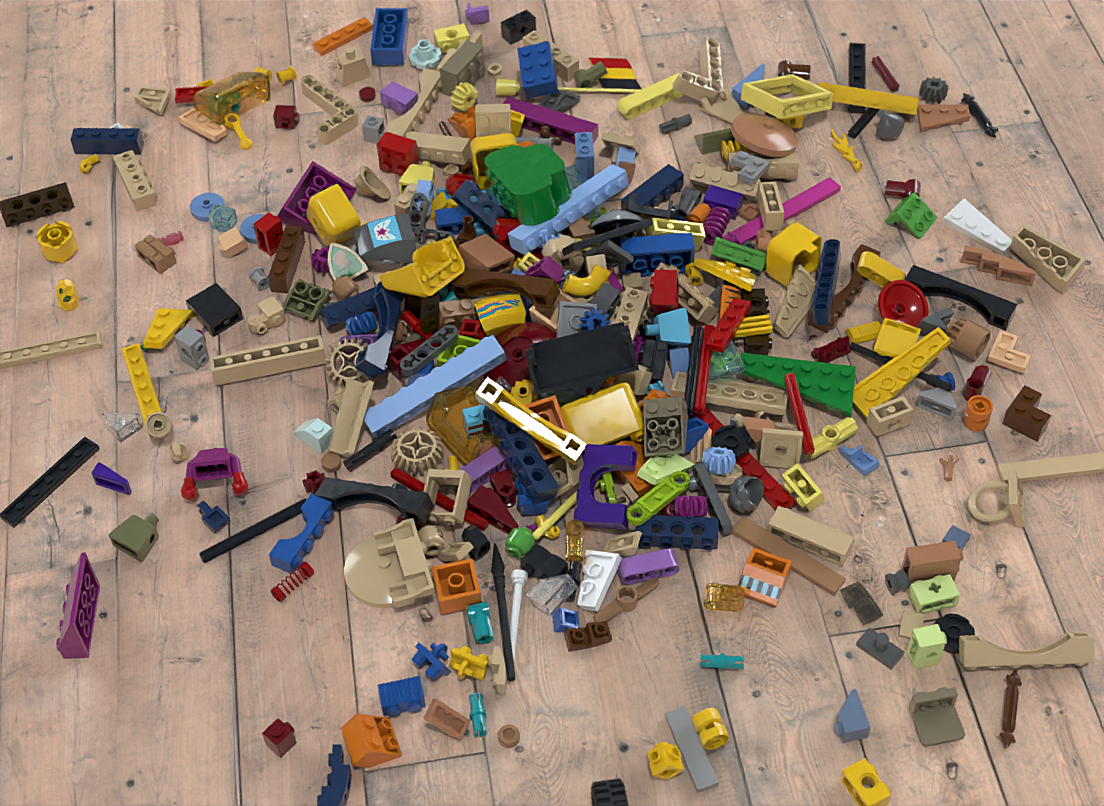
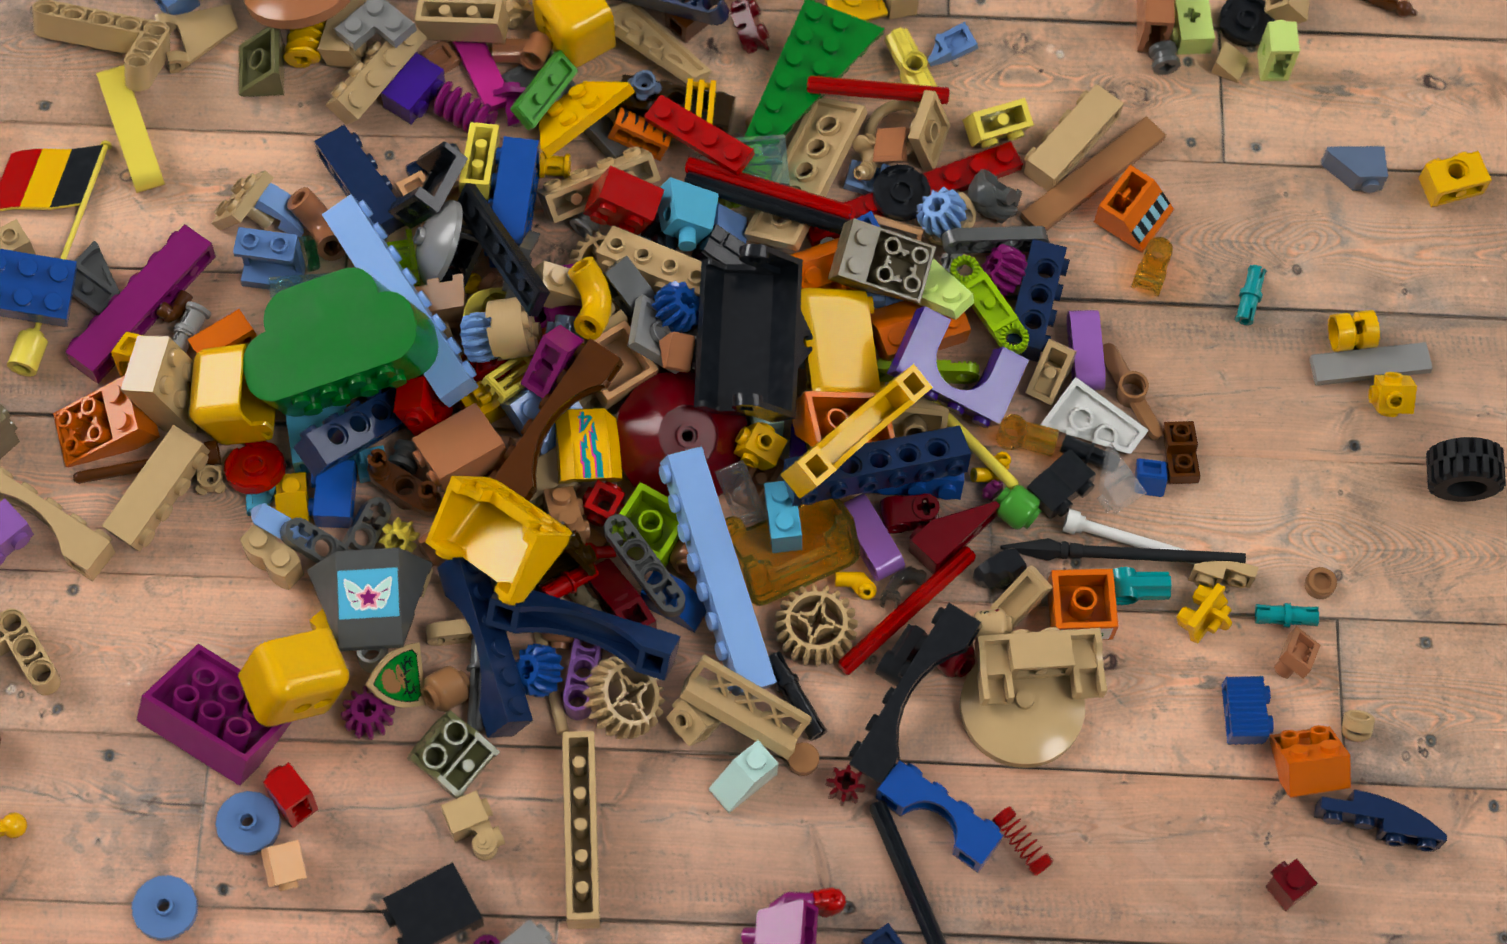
camera: 85 degrees left, 15 degrees up
(222, 218) = (216, 878): clear light blue brick -> none
(259, 278) = (378, 828): light grey bush -> none
(286, 259) = (350, 776): reddish brown brick -> none
(369, 184) = (208, 613): tan piece -> none
(373, 129) = (65, 590): light grey brick -> none
(396, 153) = (157, 555): red piece -> none
(404, 769) = (1357, 722): none -> tan tile
(415, 173) = (217, 533): light yellow torso -> none
(423, 655) = (1205, 655): blue hips -> none
(448, 477) = (903, 572): tan window -> none
(464, 96) = (35, 424): light yellow gear -> none
(563, 327) = (677, 351): none -> nougat slope
(585, 78) = (48, 222): olive piece -> none
(628, 495) = (963, 346): tan tile -> none
(632, 281) = (544, 252): tan tile -> none
(675, 123) = (206, 113): dark grey axle -> none
(688, 200) = (391, 133): dark grey piece -> none
(699, 213) = (431, 127): orange brick -> none
(758, 296) = (644, 77): none -> sand blue plate
(862, 602) = (1188, 106): clear smoke slope -> none
(880, 648) = (1255, 108): dark grey tile -> none
(936, 716) = (1370, 73): dark tan bracket -> none

